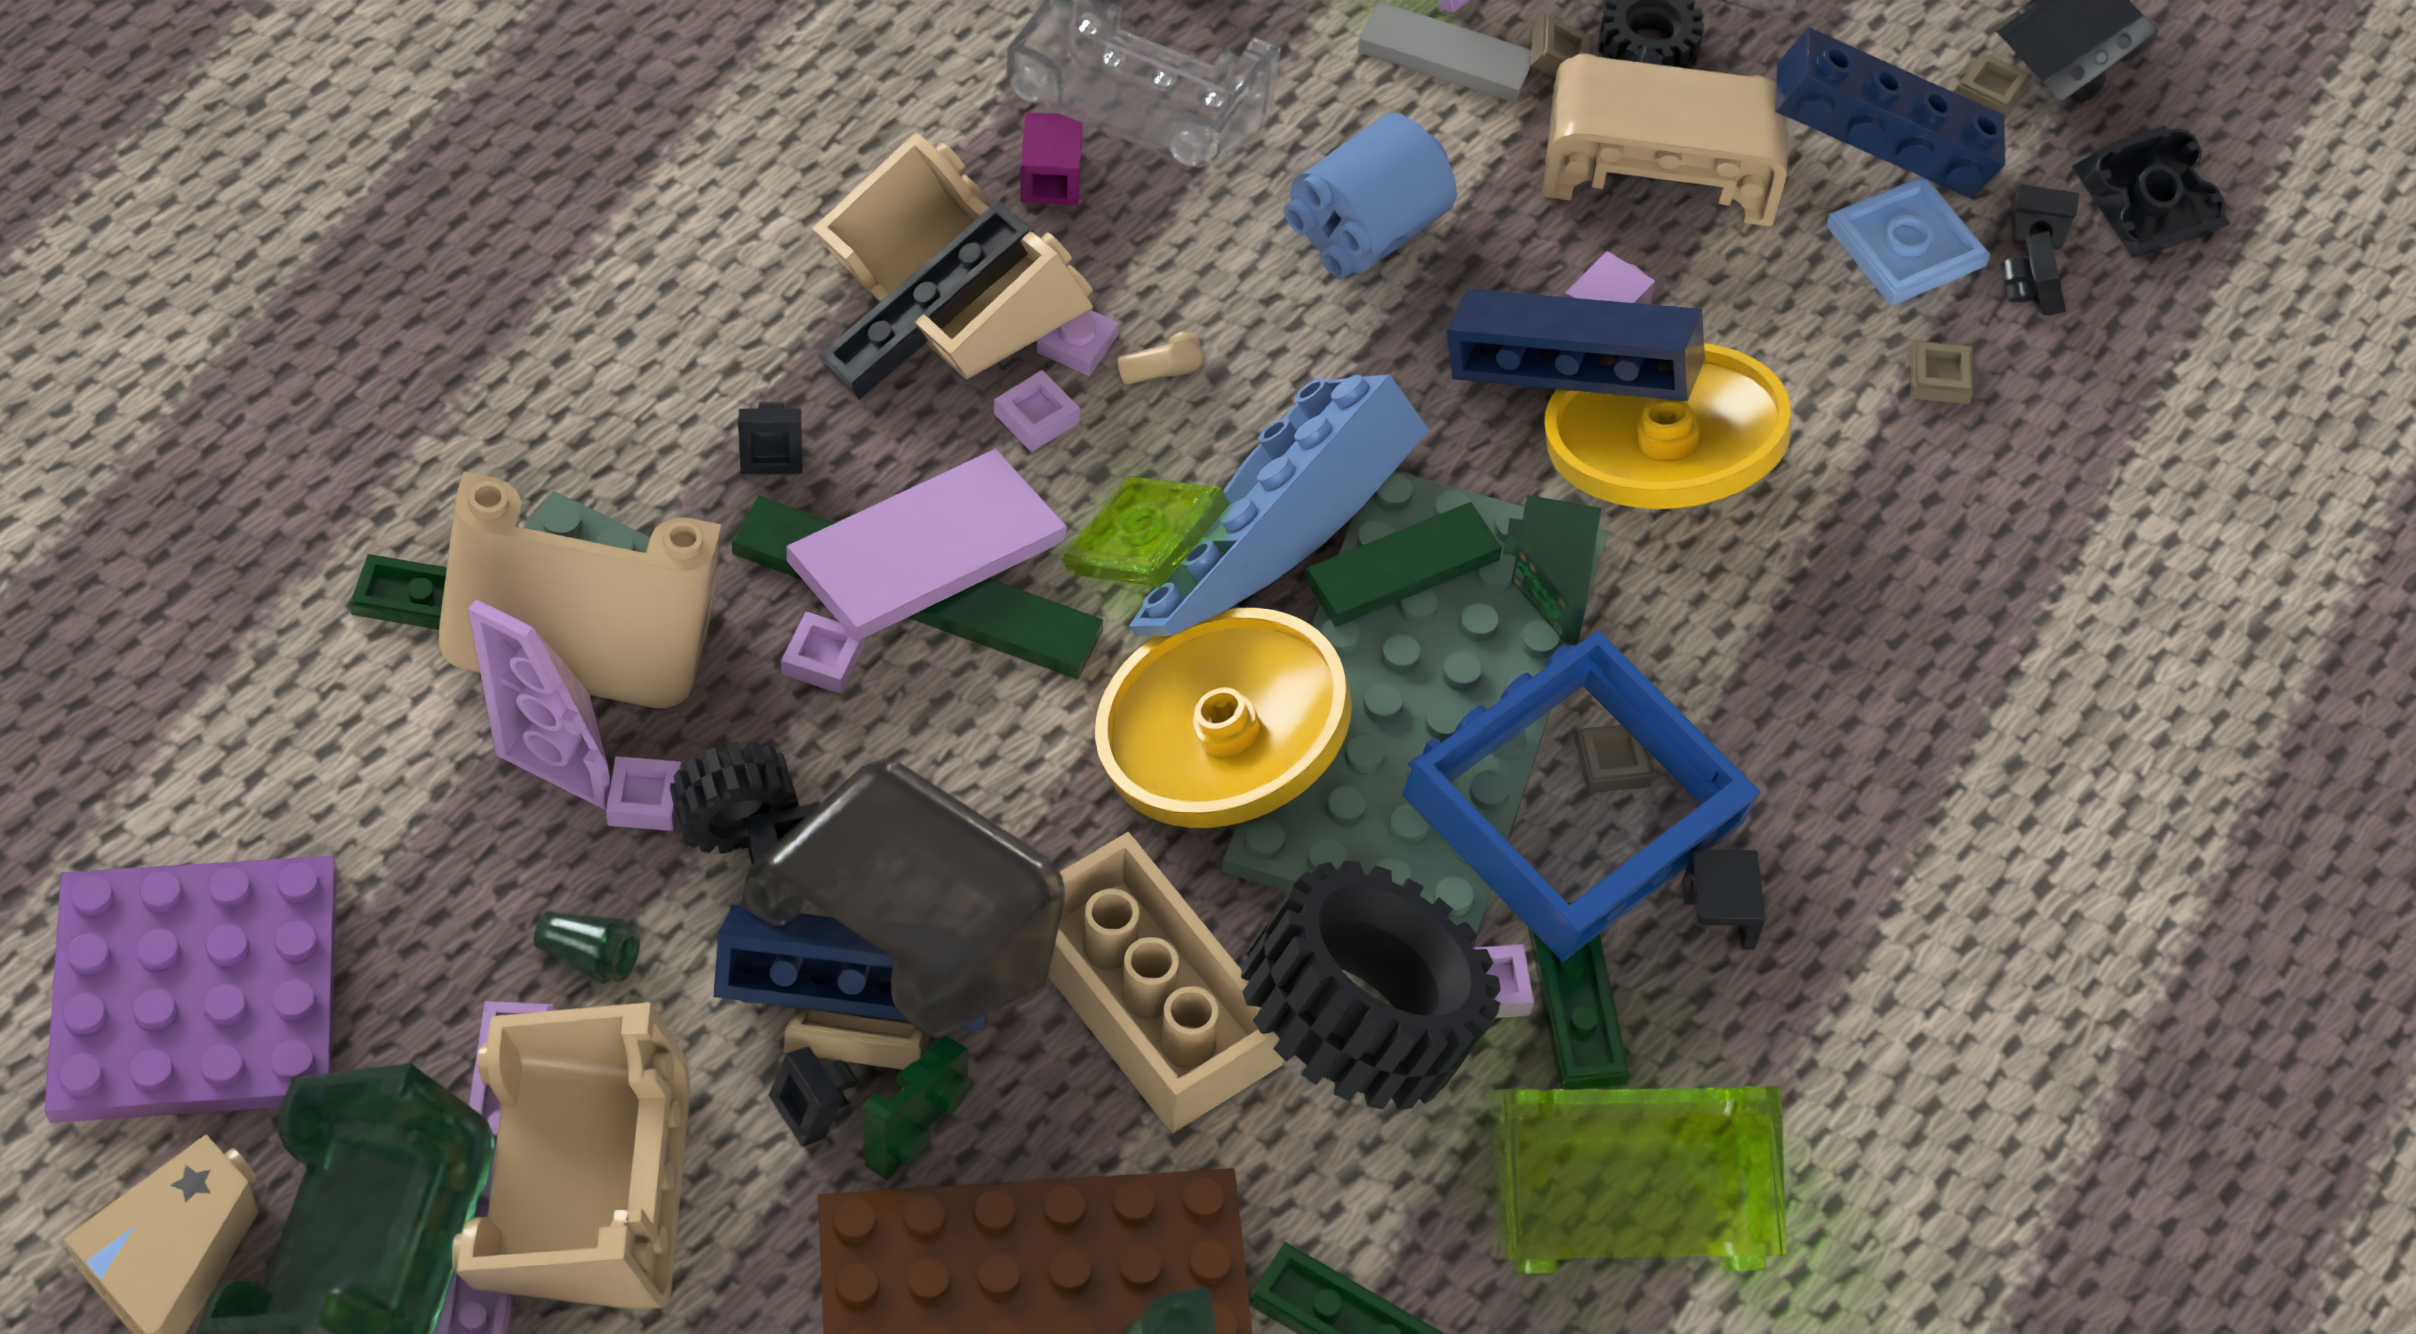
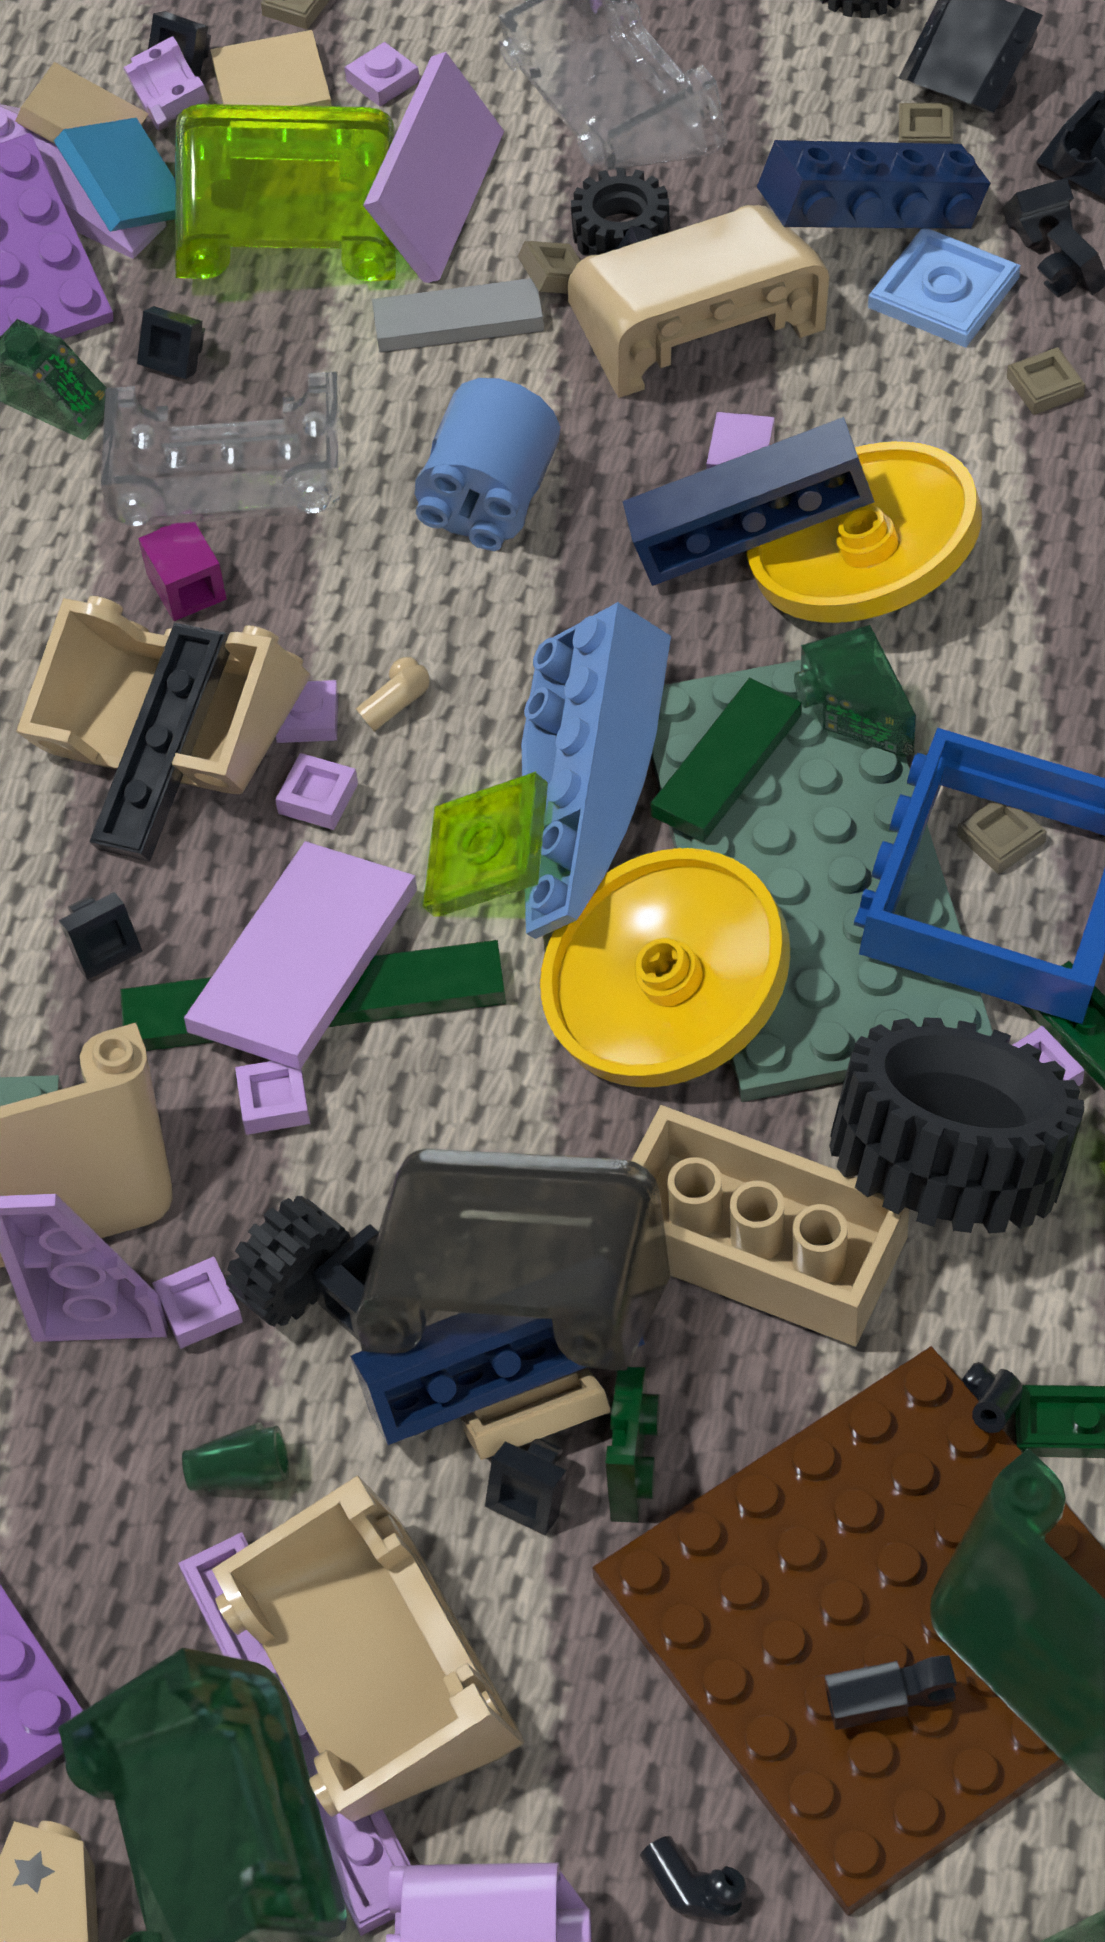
camera: 20 degrees left, 0 degrees up
(1257, 1243) = (996, 1396): none -> black arm

